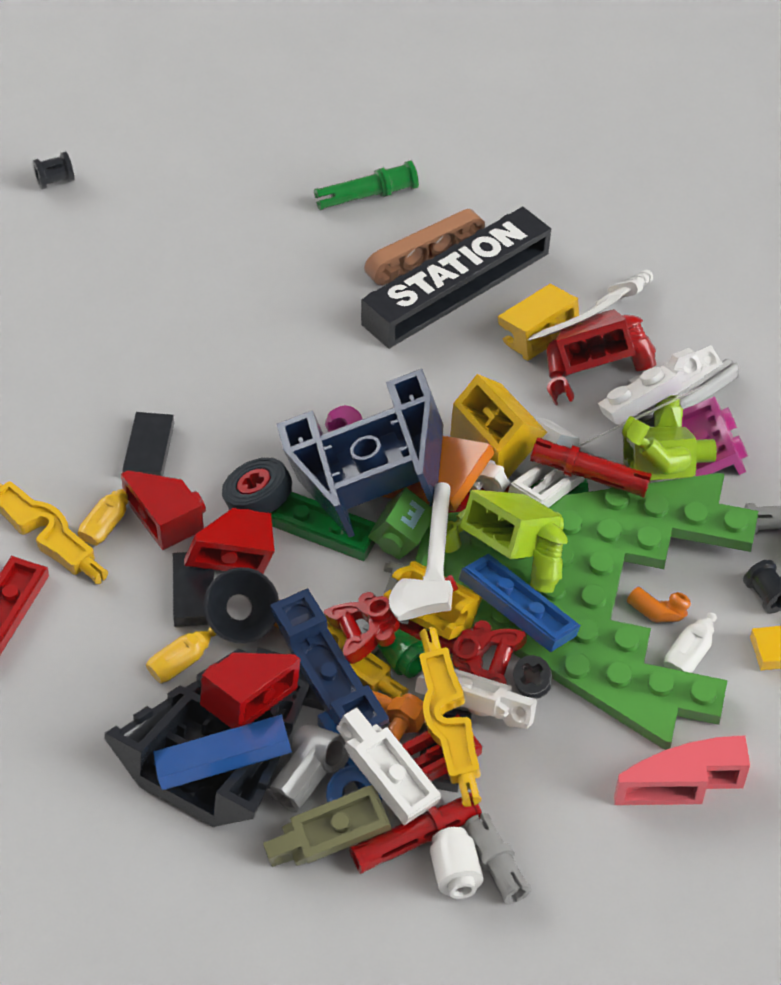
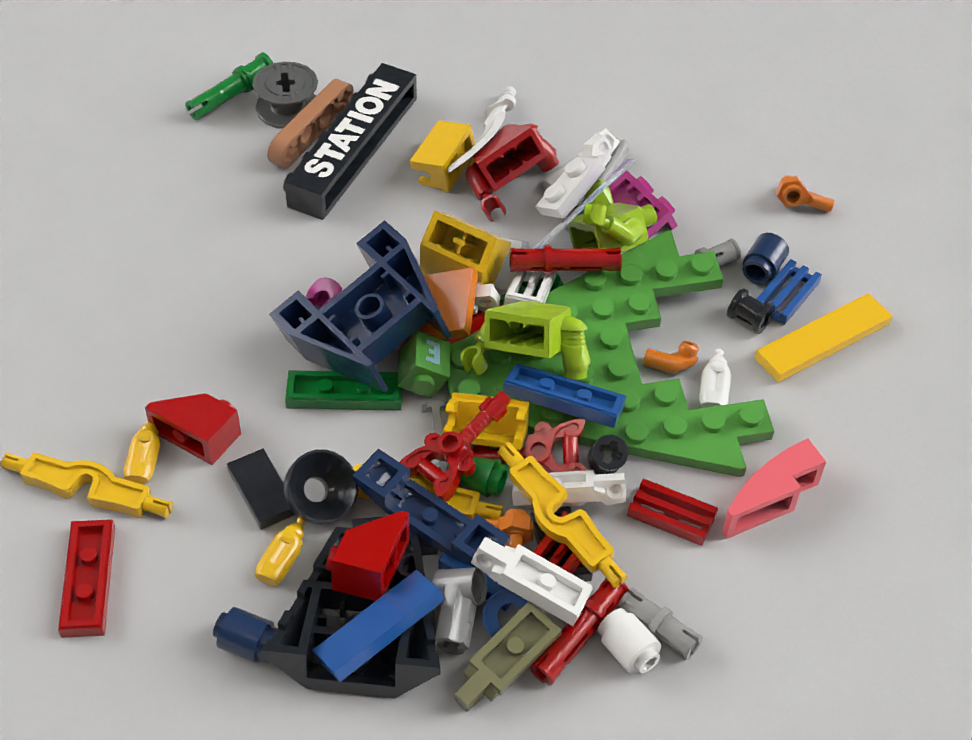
camera: 25 degrees left, 0 degrees up
(102, 710) = (243, 633): none -> dark blue brick
(149, 443) = (149, 373): black tile -> none
(234, 541) = (285, 433): red slope -> none
(258, 485) = (275, 393): black bush -> none
(412, 205) = (283, 92): none -> dark grey piece
(433, 594) = (494, 413): white piece -> none
(577, 752) = (675, 507): none -> red tile

